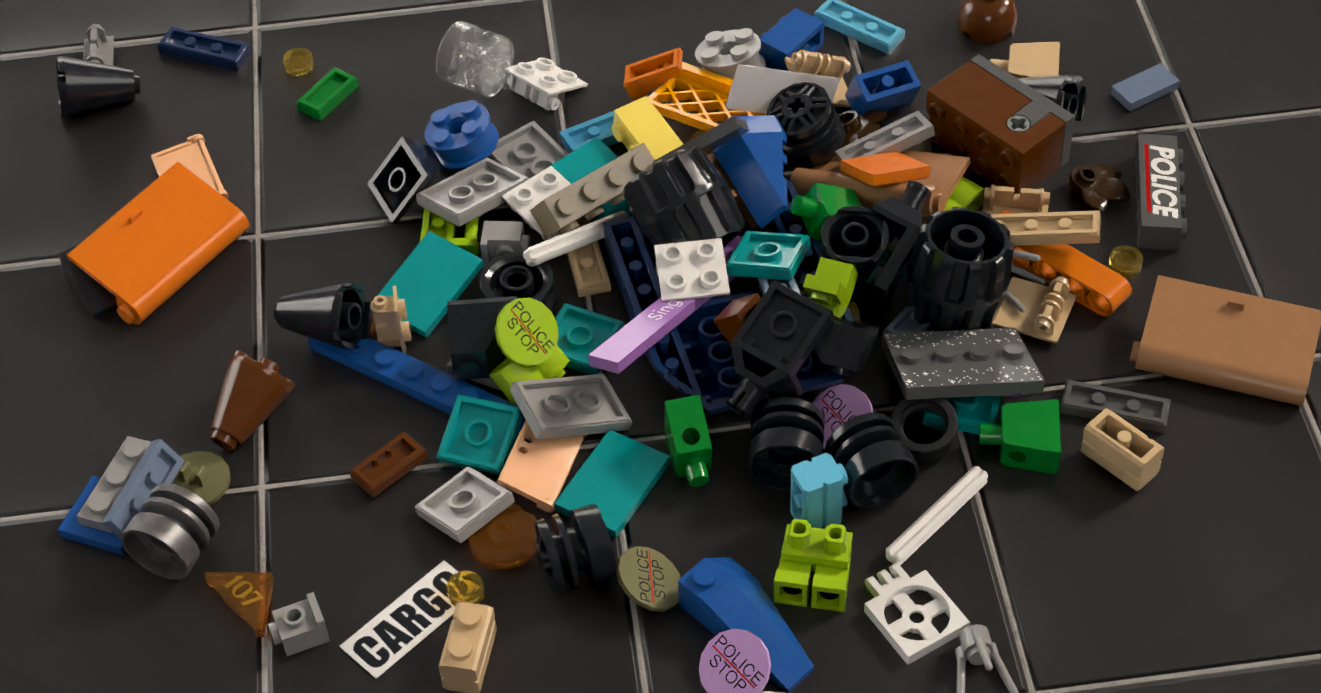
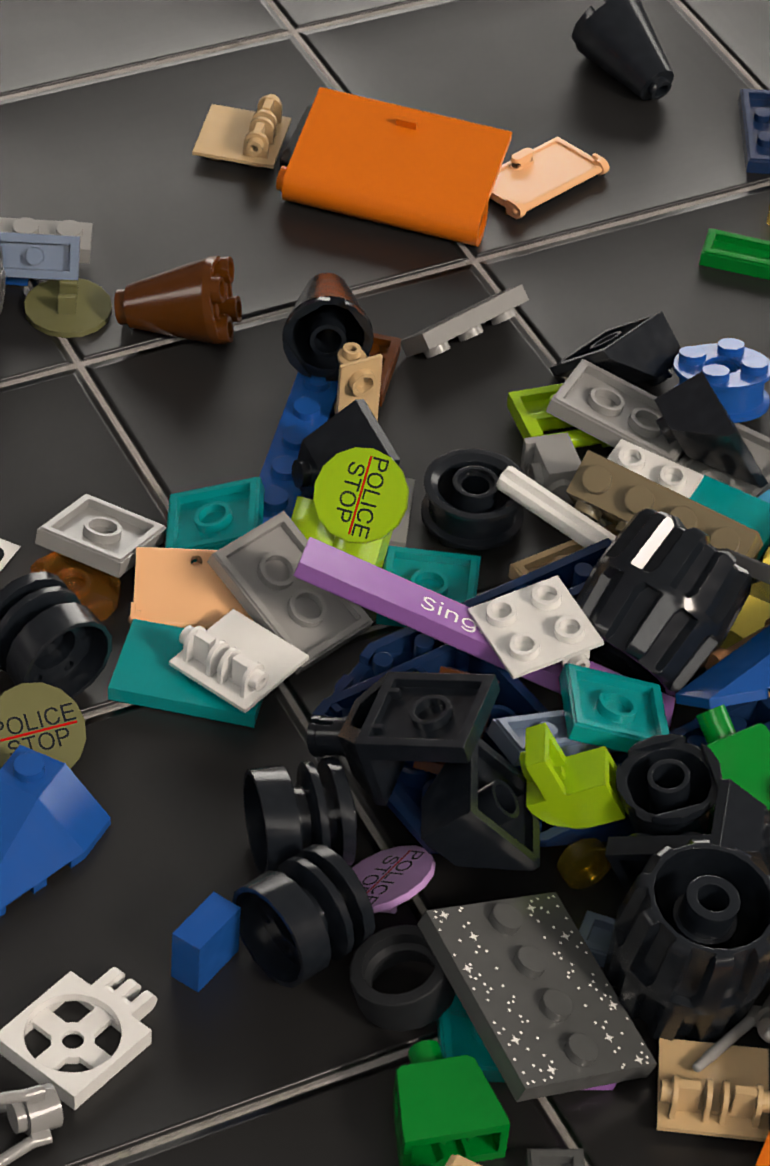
camera: 65 degrees right, 5 degrees down
(54, 328) = (244, 134): none -> tan hinge
(98, 46) = (687, 49): light grey hinge -> none
(332, 248) = (465, 323): none -> light grey plate
(388, 464) = (142, 455): reddish brown plate -> none
(430, 278) = (449, 414): teal tile -> none
(520, 146) = (705, 430): none -> black slope
(624, 449) = (236, 659): none -> white hinge
(688, 439) = (269, 716): green torso -> none
(817, 551) = (111, 902): lime hips -> none
(818, 491) = (219, 854): medium azure brick -> none
(867, 521) = (205, 941): none -> blue piece
(936, 515) = (260, 1031): white axle -> none

